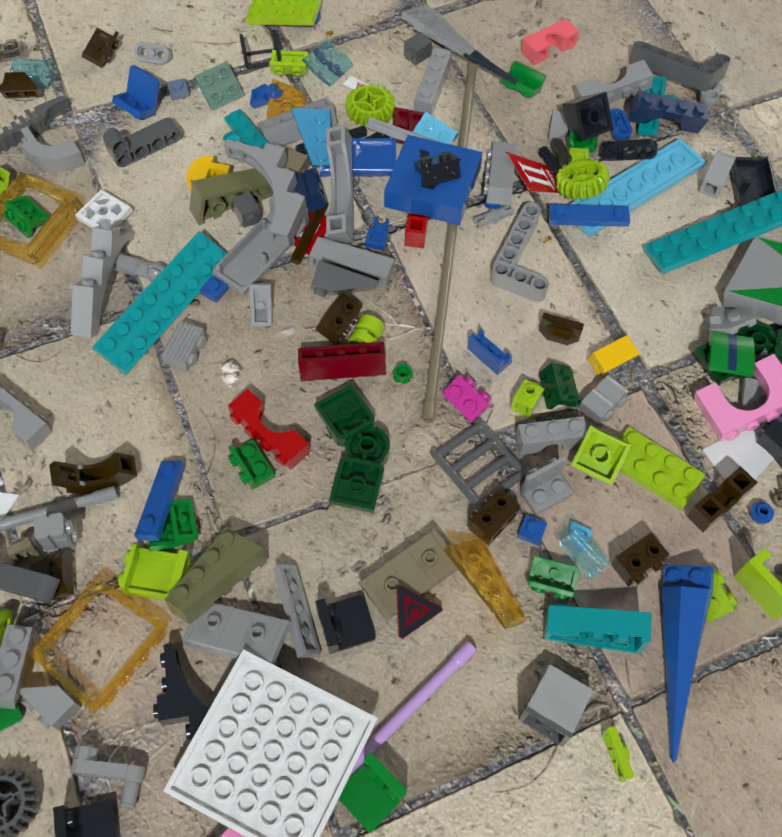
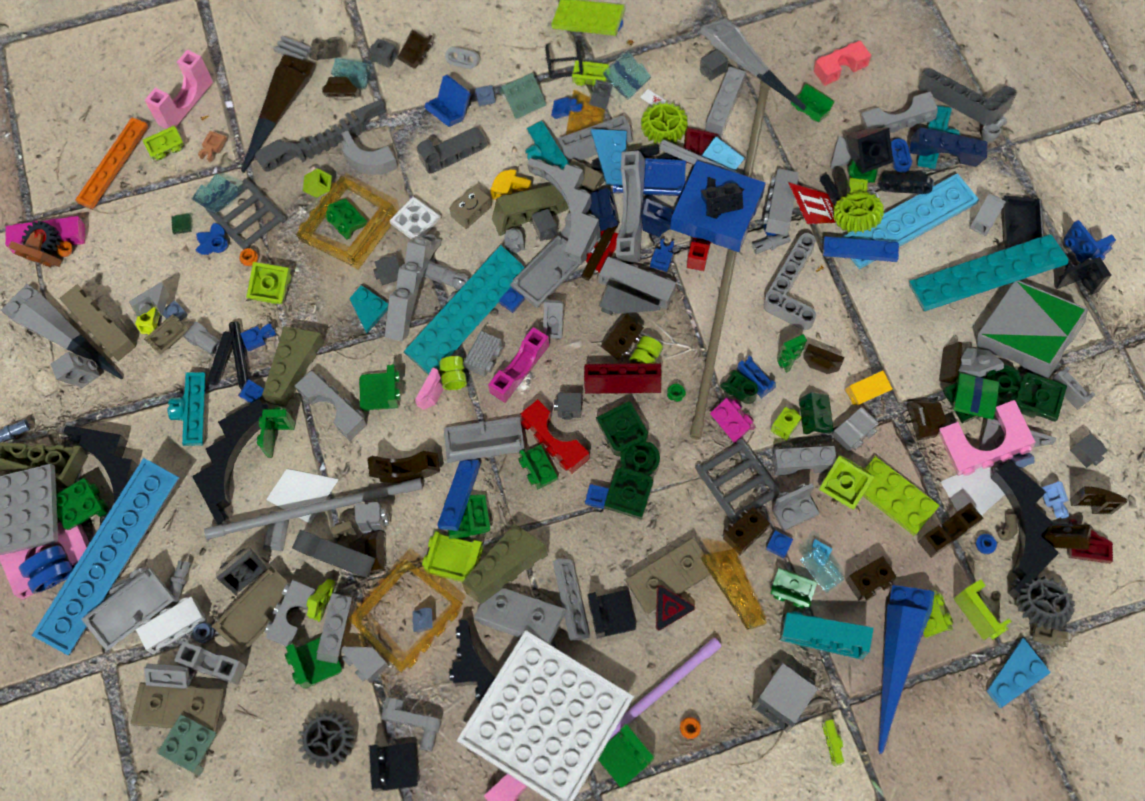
camera: 10 degrees right, 5 degrees up
(52, 306) = (368, 307): none -> teal wing
(66, 392) = (380, 390): none -> green bracket
(67, 52) = (383, 52): none -> dark grey brick
(71, 265) = (386, 269): none -> dark grey brick
(119, 648) = (422, 620): none -> sand blue plate
(124, 389) = (430, 390): none -> bright pink slope
(149, 368) = (452, 373): none -> lime wheel
(165, 196) = (470, 206): none -> dark tan brick
(187, 438) = (483, 439): none -> light grey container
(212, 372) = (530, 351): none -> dark pink arch
(214, 228) = (514, 241): none -> light grey plate
(282, 394) = (568, 405): none -> dark grey brick
(301, 80) = (601, 94): none -> dark grey brick
(320, 491) = (596, 496): none -> blue plate
(367, 196) = (655, 218): none -> dark blue slope
(453, 745) = (690, 721): none -> orange plate
(471, 362) = (737, 385): none -> dark green piece
(525, 321) = (790, 352): none -> green bracket
(679, 383) = (926, 418): none -> dark brown slope
(698, 324) = (950, 363): none -> dark brown slope

